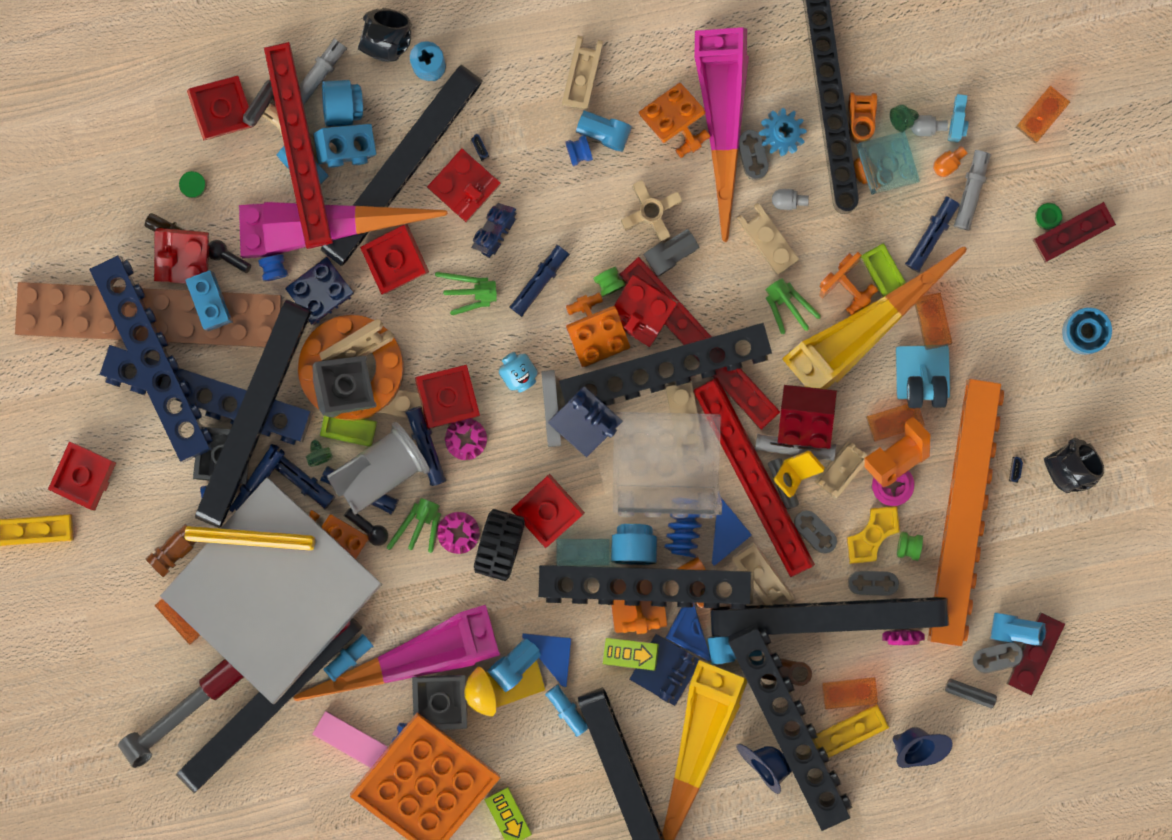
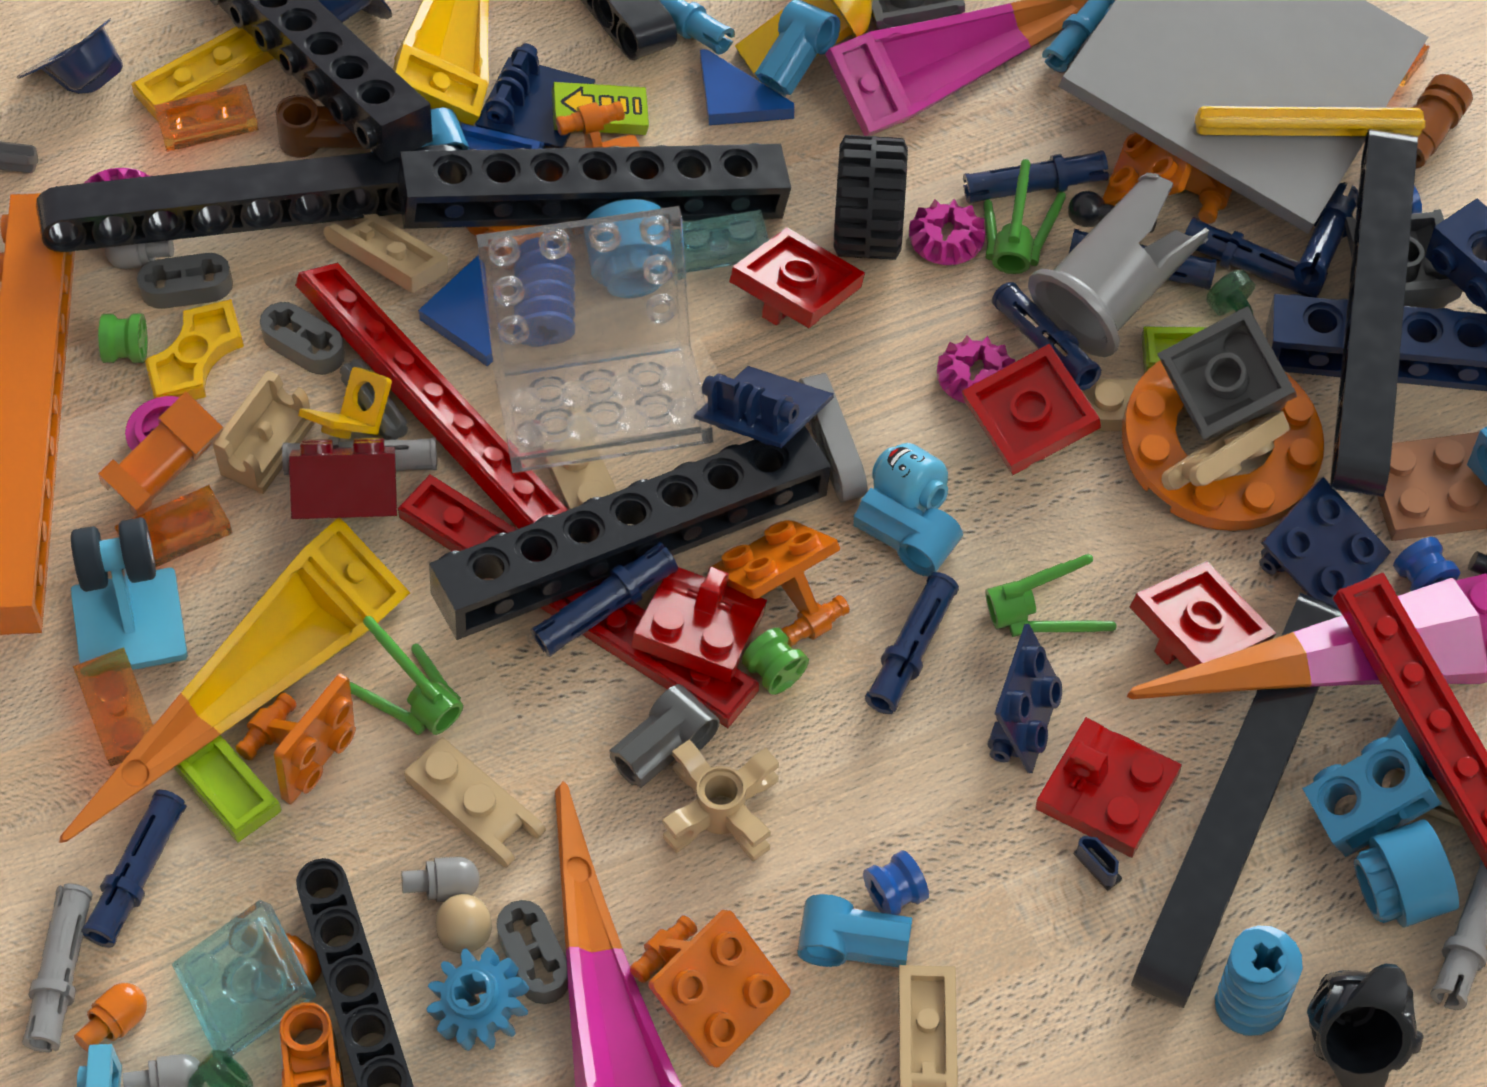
camera: 165 degrees right, 30 degrees down
(400, 558) = (1045, 175): none -> dark blue pin
(522, 340) = (919, 537): none -> dark azure piece
(677, 333) = (614, 592): none -> dark blue pin
(782, 176) = (463, 923): none -> tan piece

